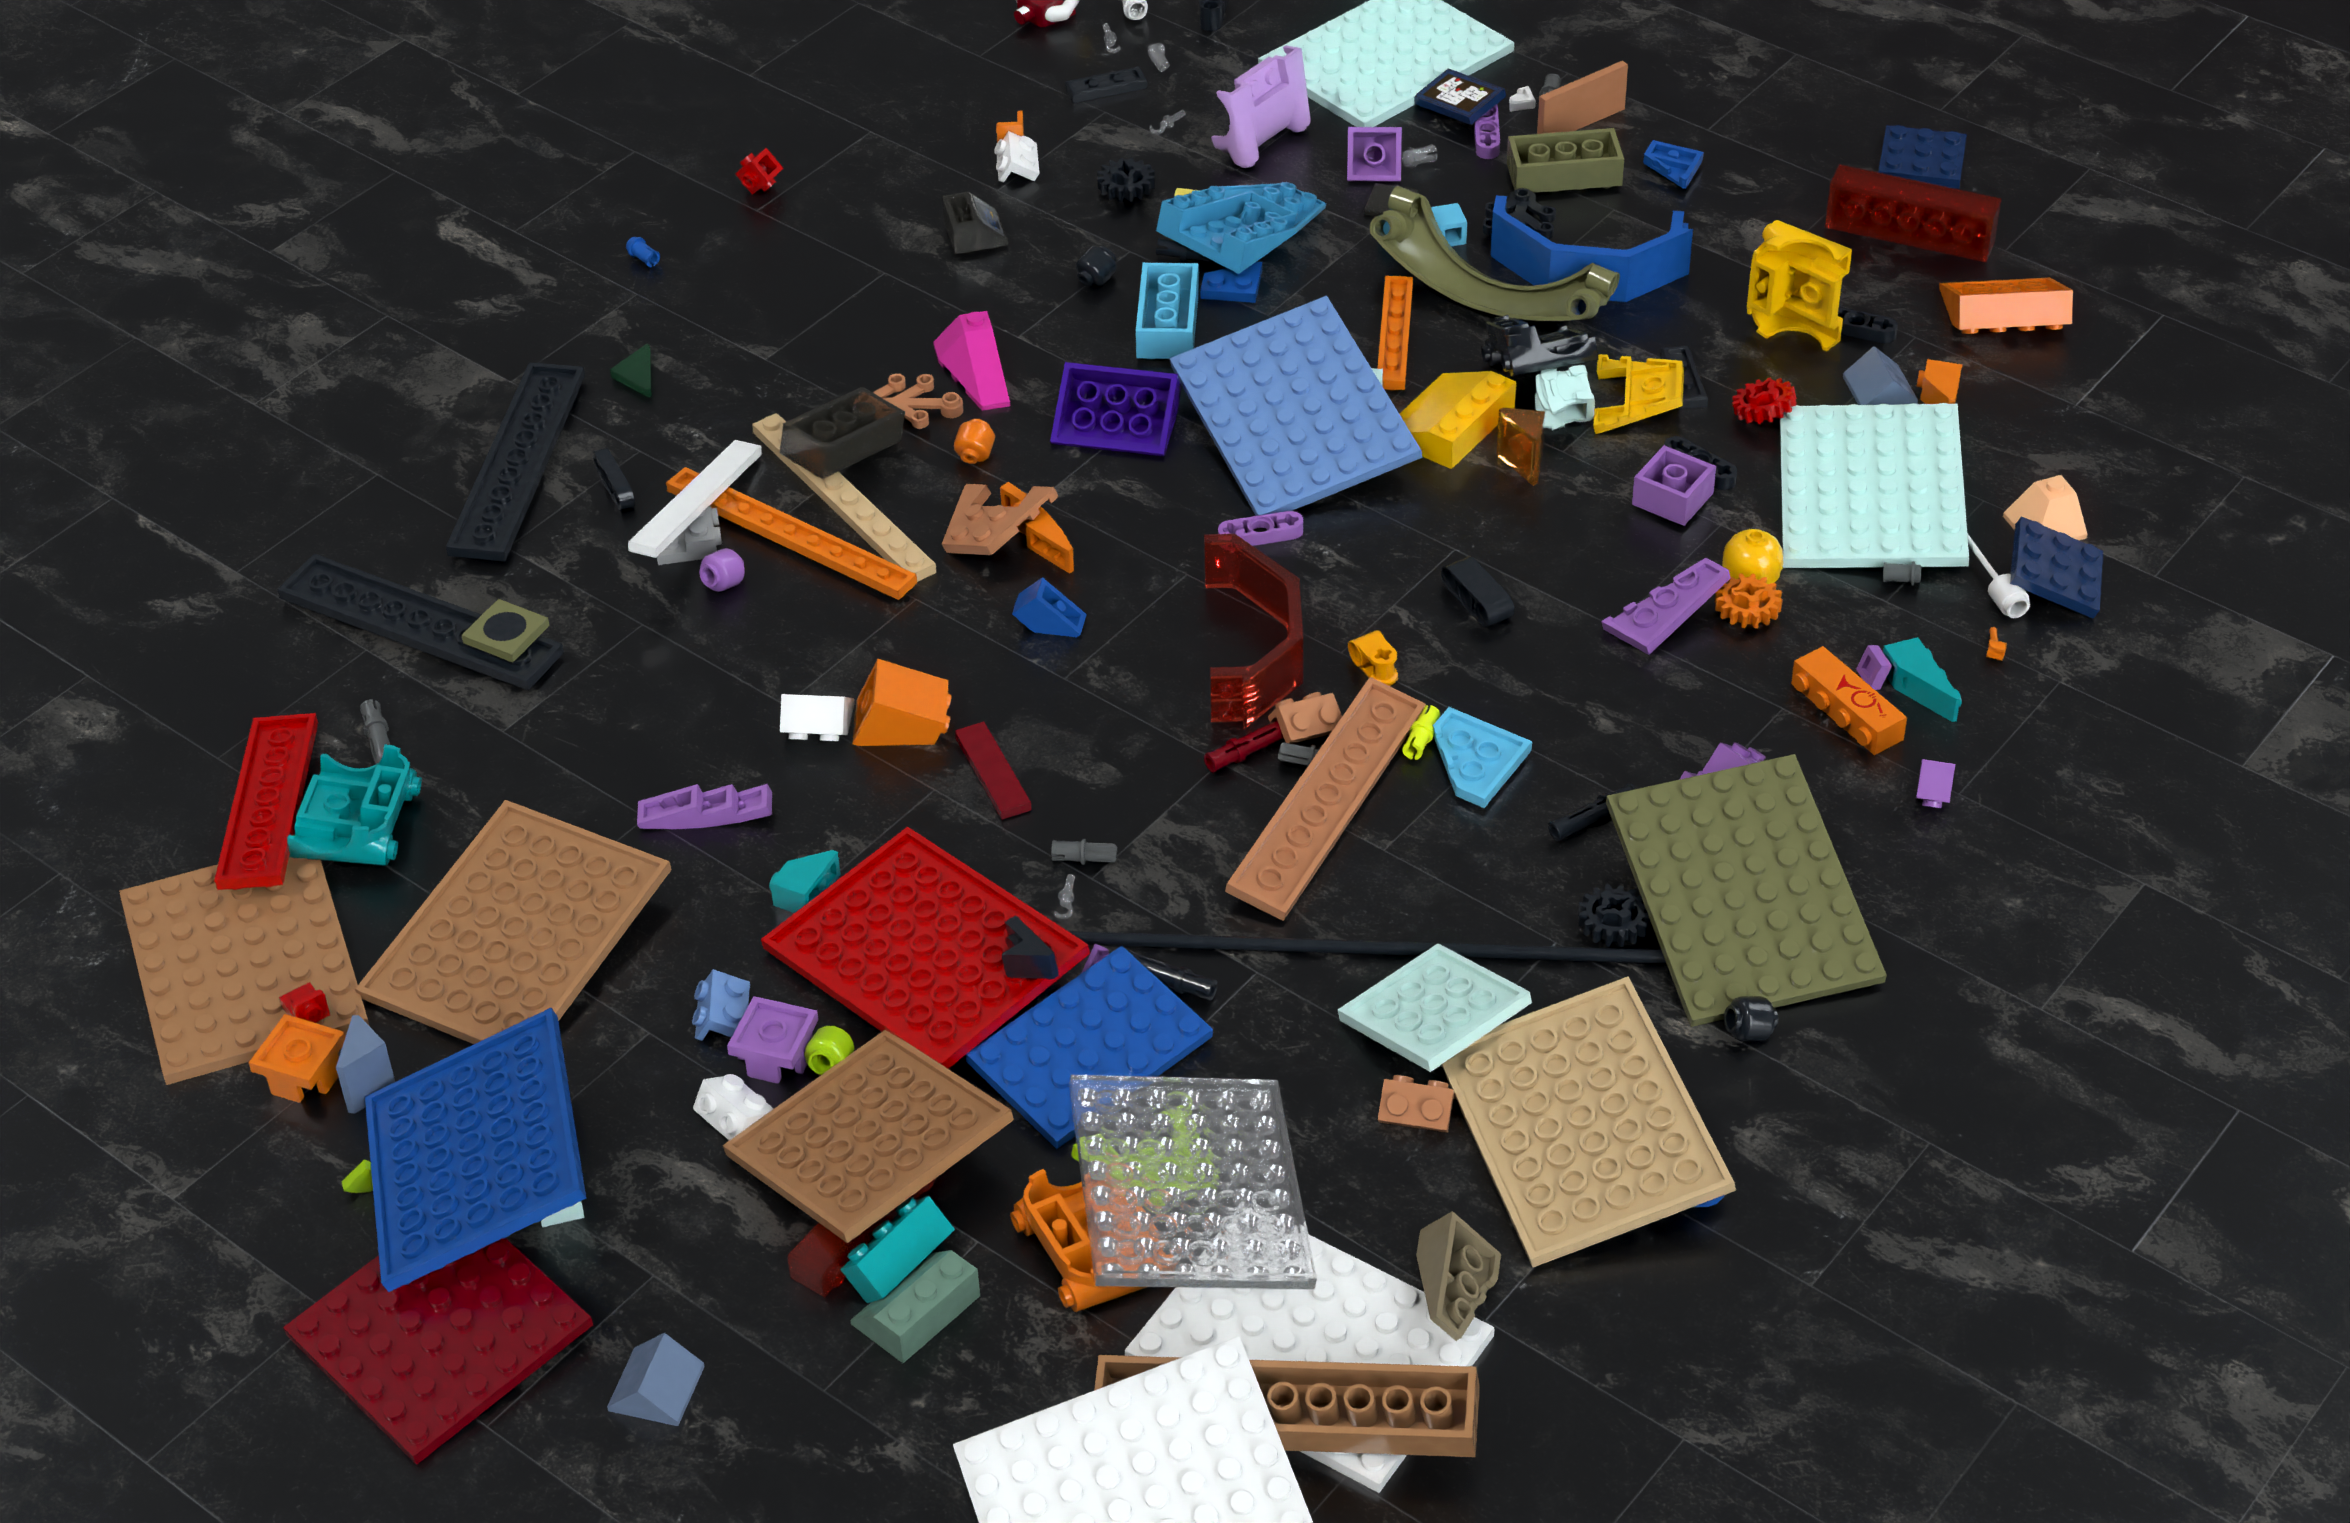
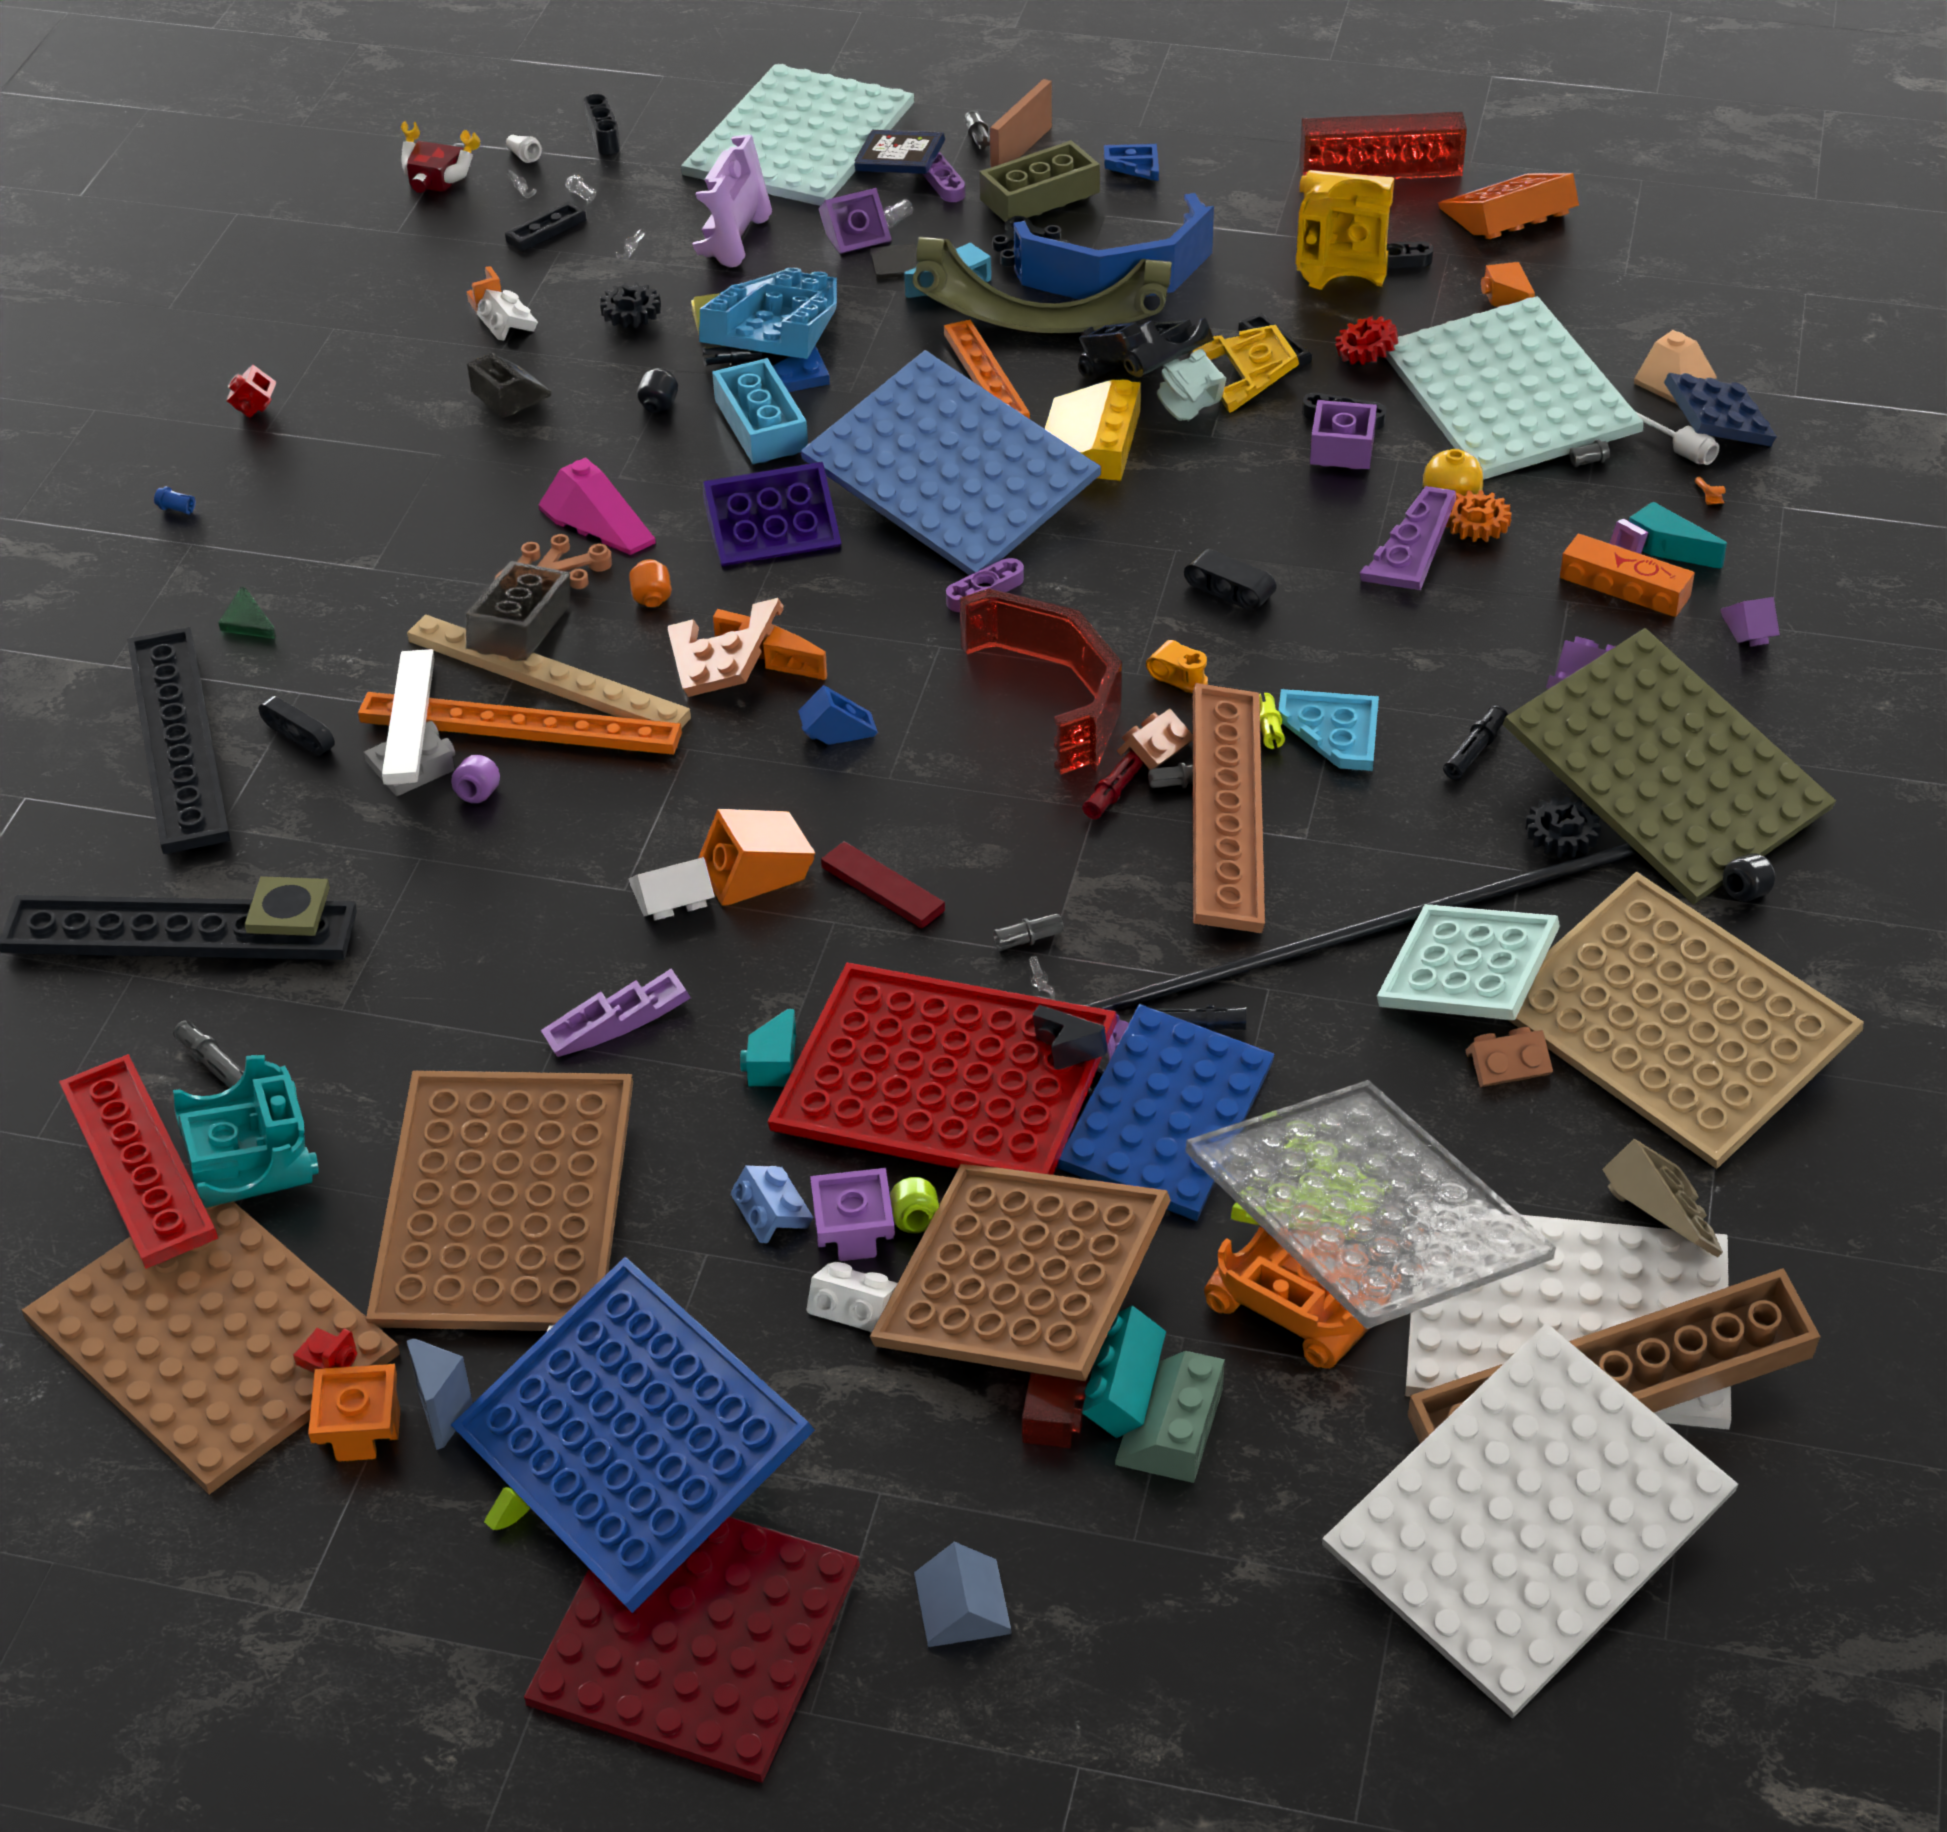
camera: 25 degrees left, 0 degrees up
(1521, 441) = (1183, 434): clear orange slope -> none
(1522, 100) = (955, 142): white tile -> none
(1878, 381) = (1447, 298): sand blue slope -> none
(1923, 155) = (1344, 96): dark blue plate -> none

